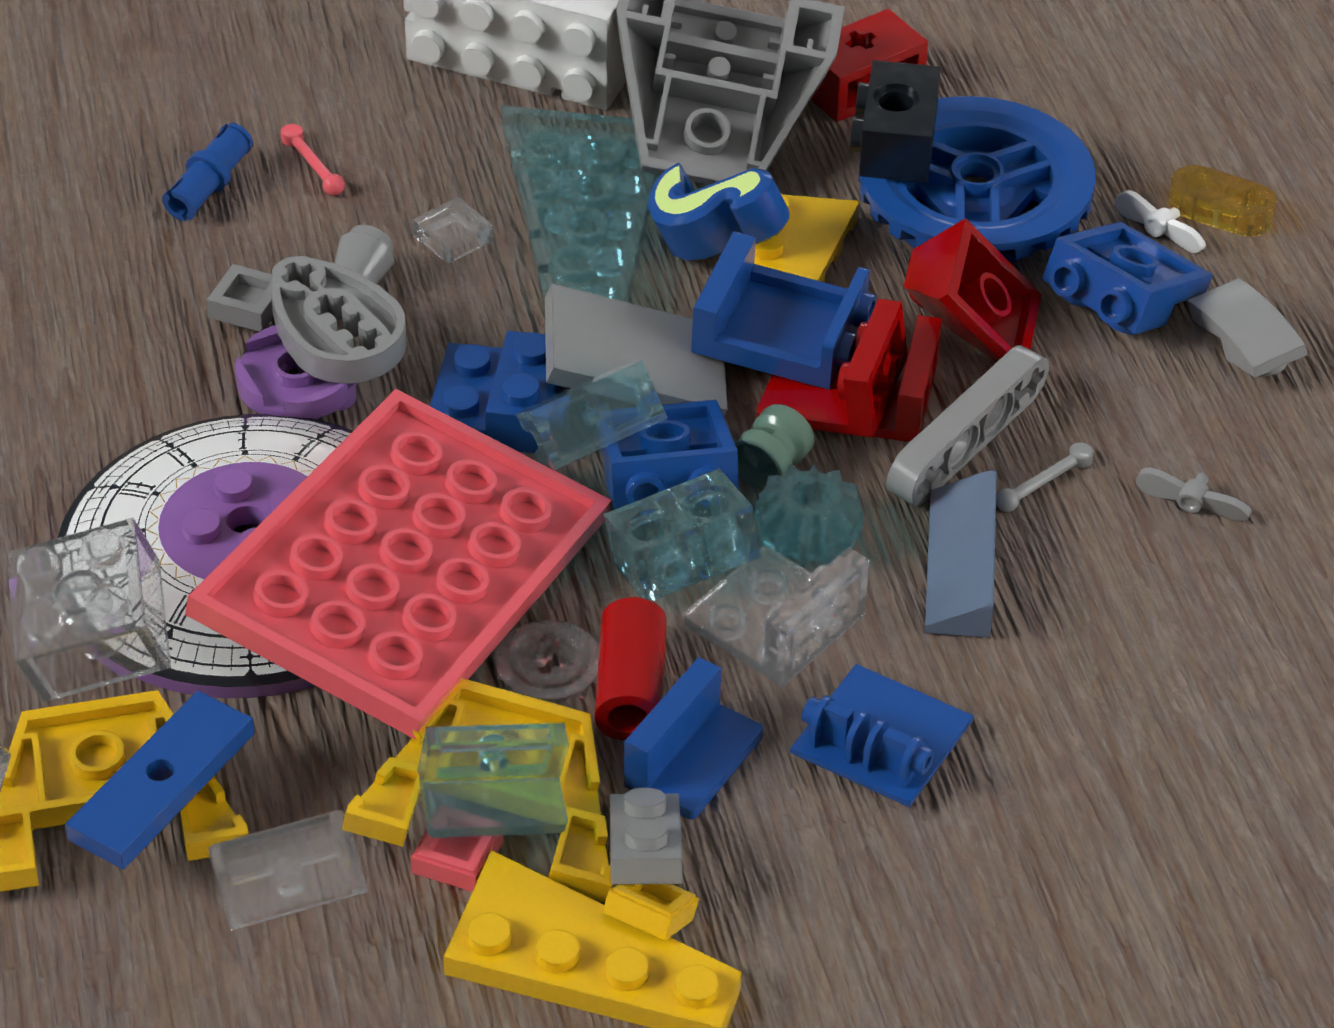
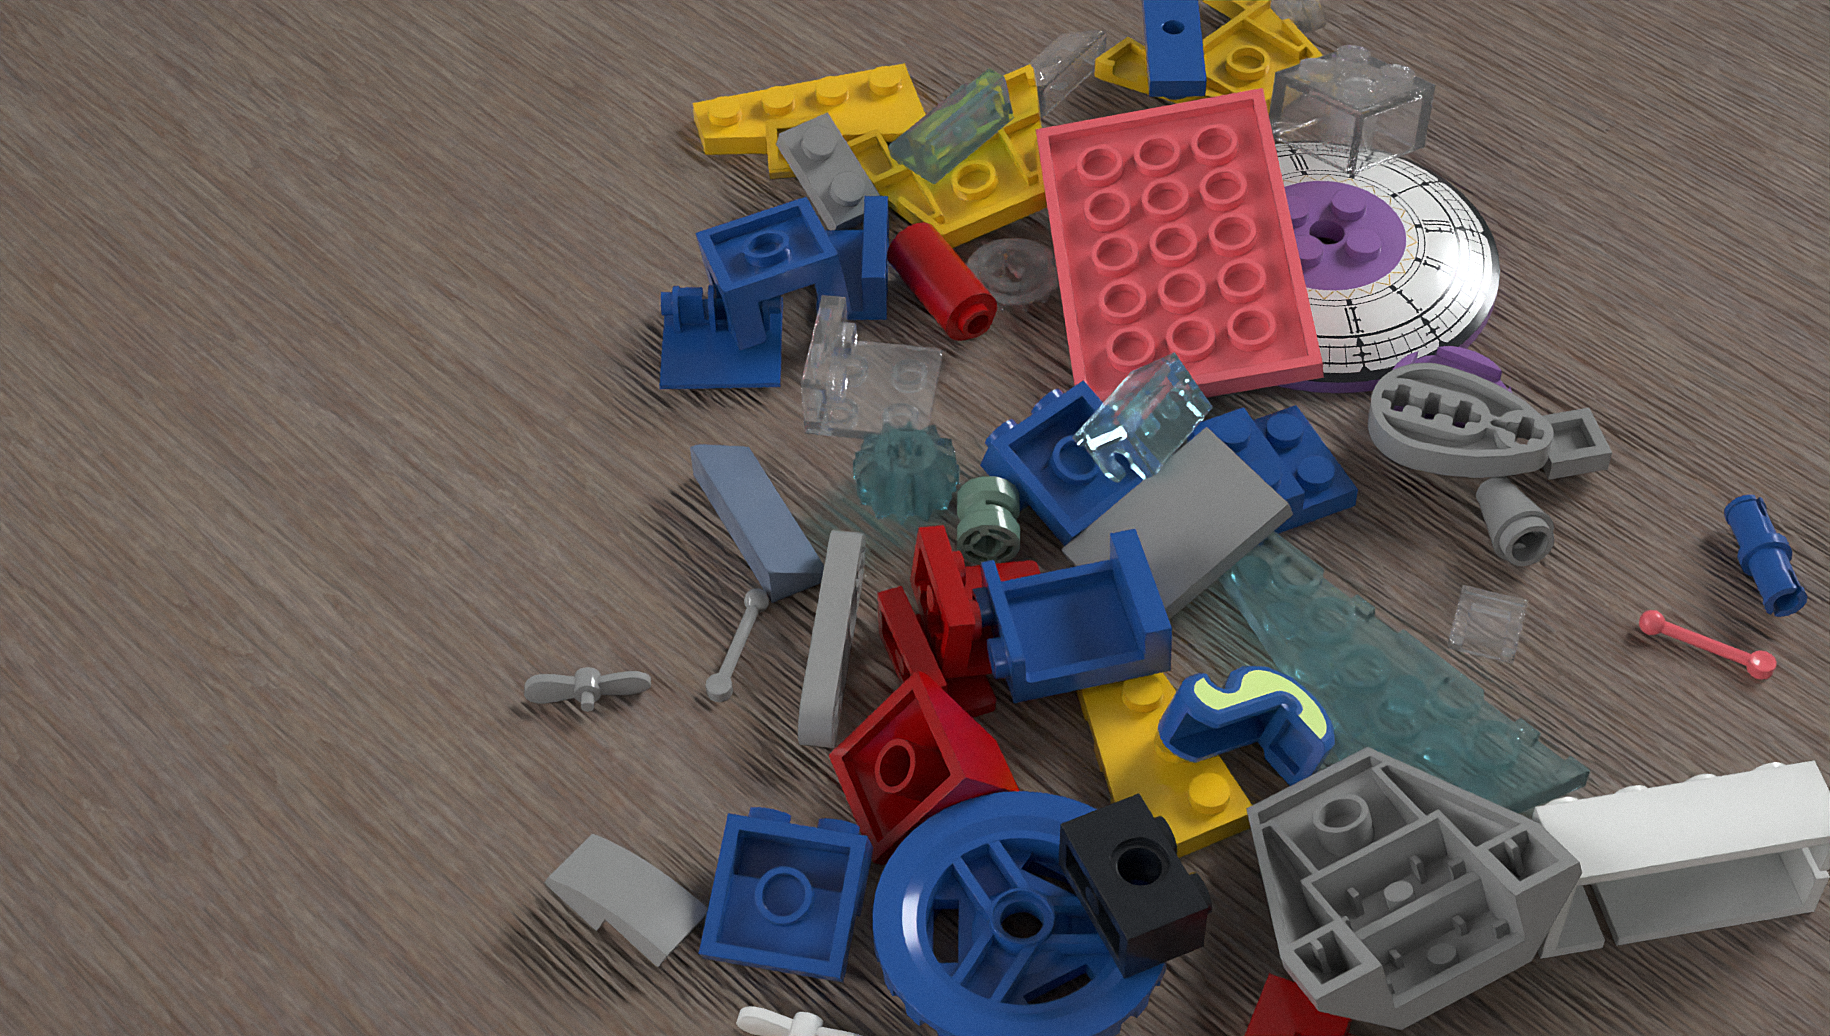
camera: 150 degrees right, 5 degrees up
(682, 535) = (986, 384): clear light blue brick -> none
(800, 717) = (767, 258): none -> blue panel

